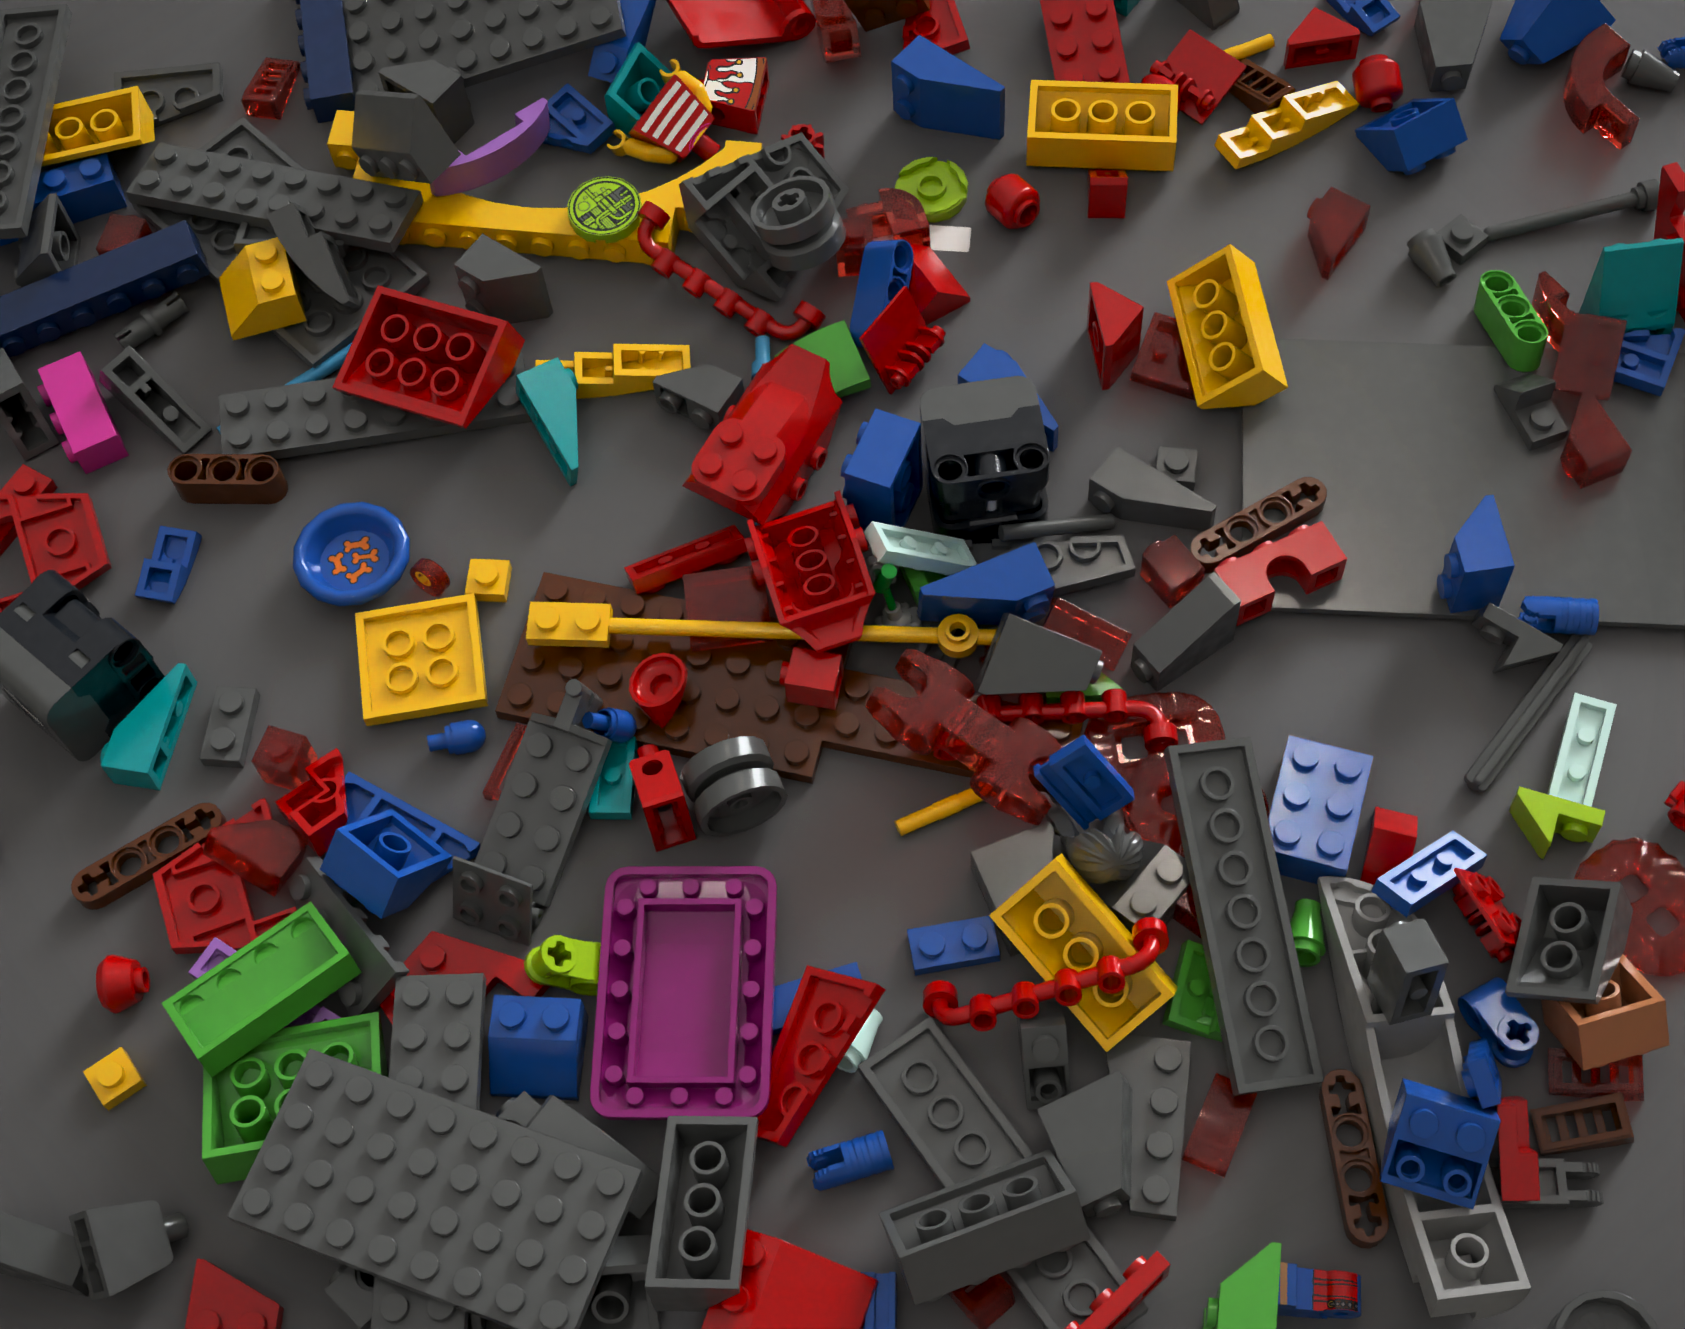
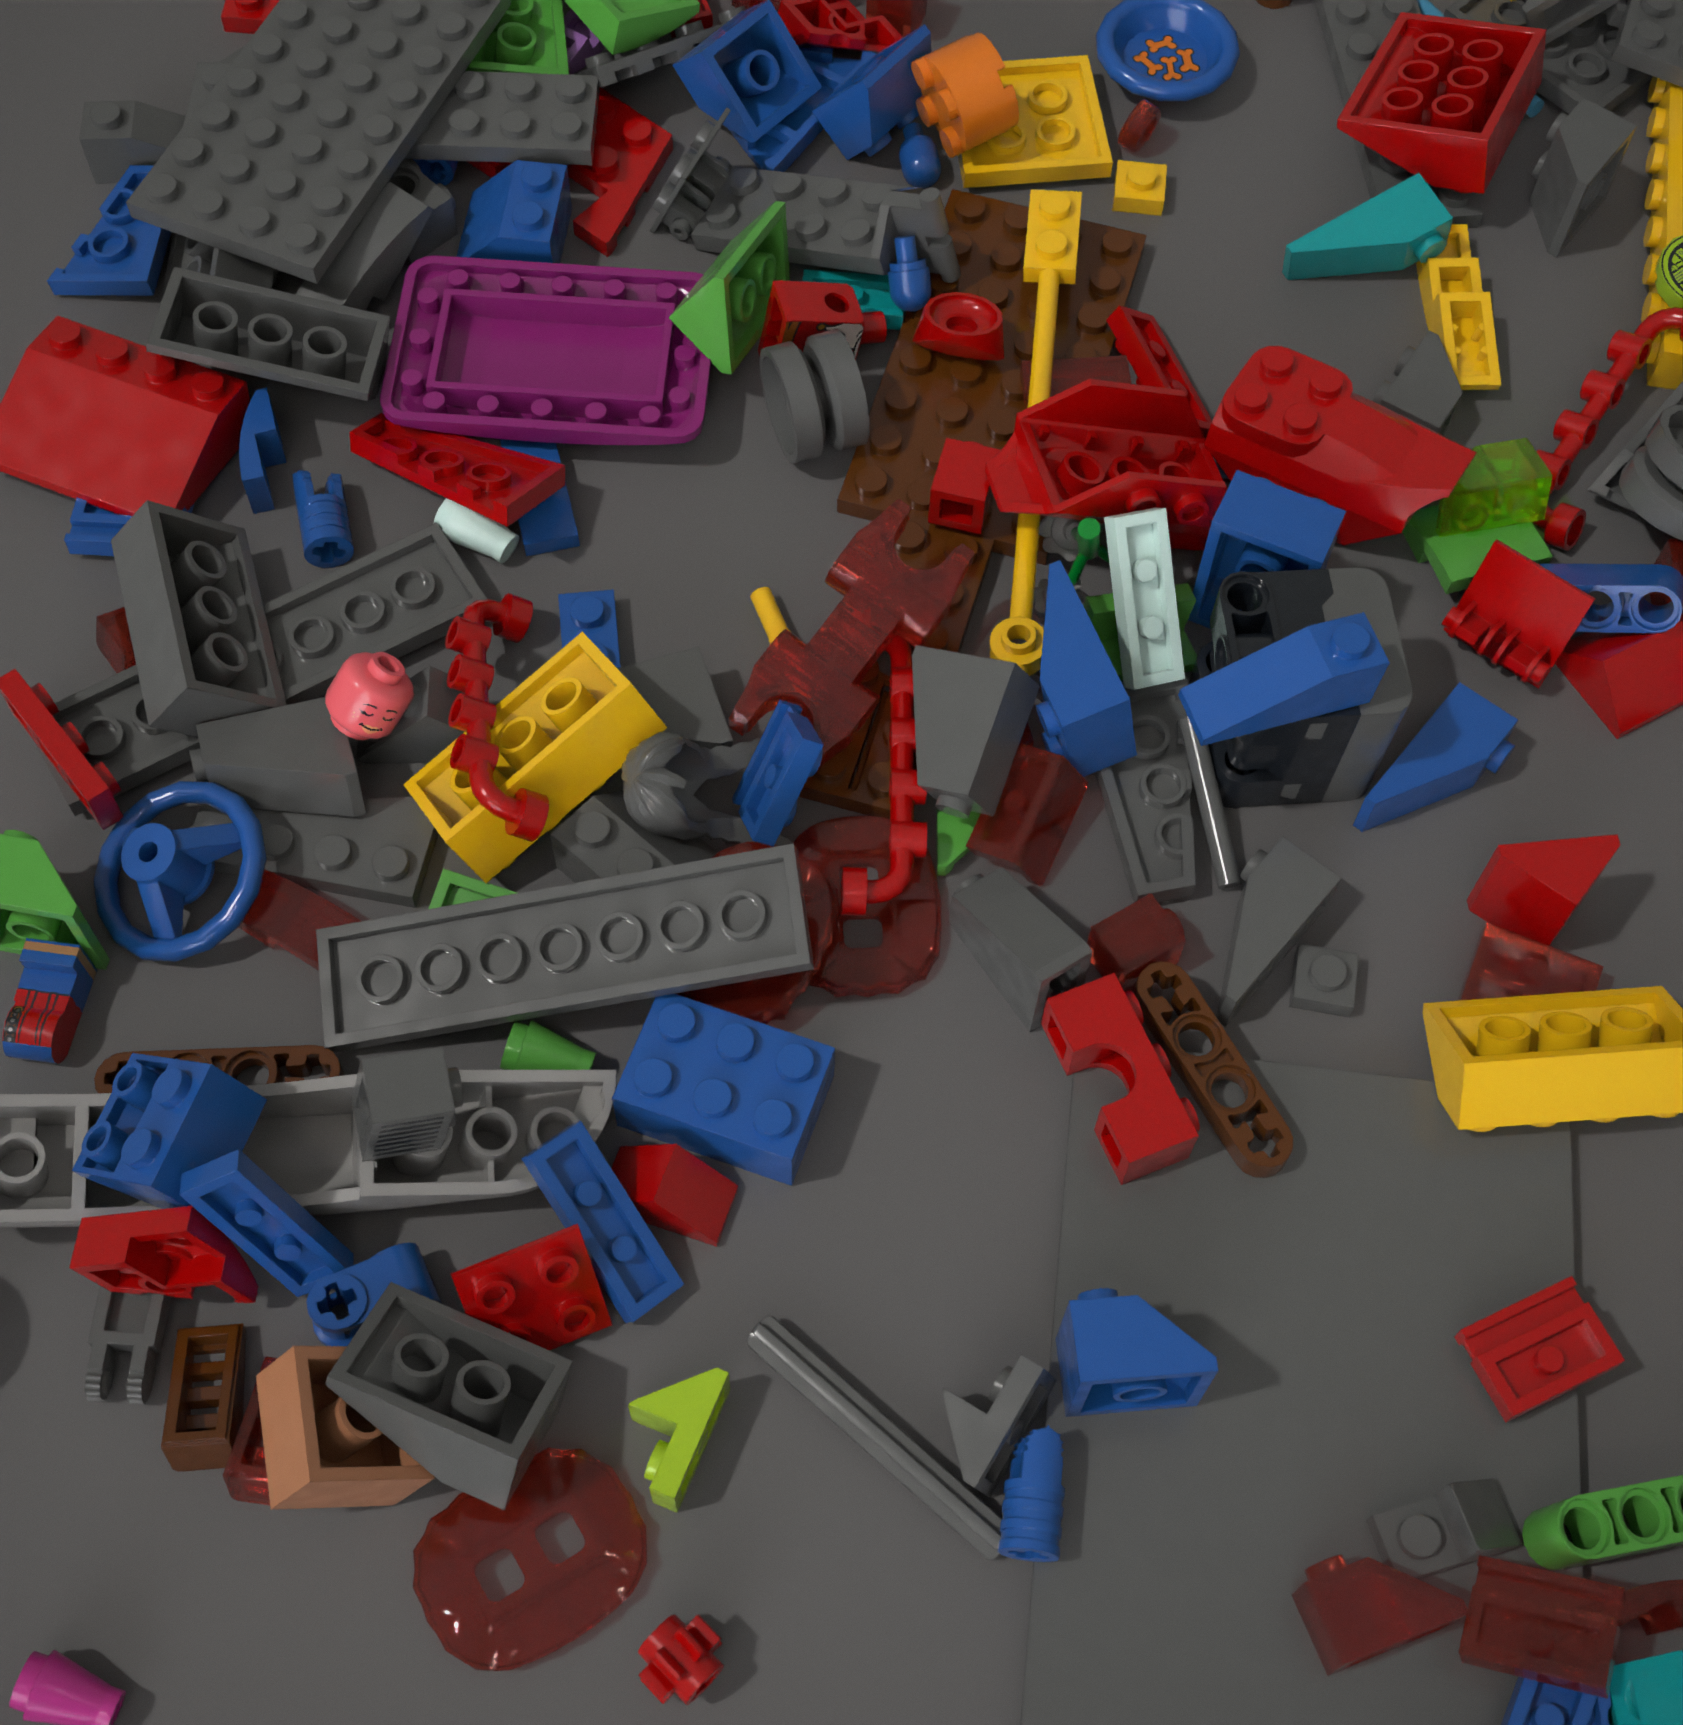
camera: 85 degrees right, 0 degrees up
(406, 761) = (875, 97): none -> blue slope
(427, 686) = (965, 93): none -> orange brick
(565, 964) = (606, 248): lime piece -> none
(625, 848) = (730, 301): none -> bright green slope
(774, 1220) = (258, 449): none -> blue slope
(788, 329) = (1499, 489): none -> clear neon green slope
(1033, 437) = (1289, 681): none -> blue slope
(1054, 1069) = (369, 695): none -> coral head
(1197, 1208) = (177, 869): none -> blue piece
(1416, 356) = (1539, 1349): none -> red plate
(1582, 749) = (791, 1498): light aqua plate -> none

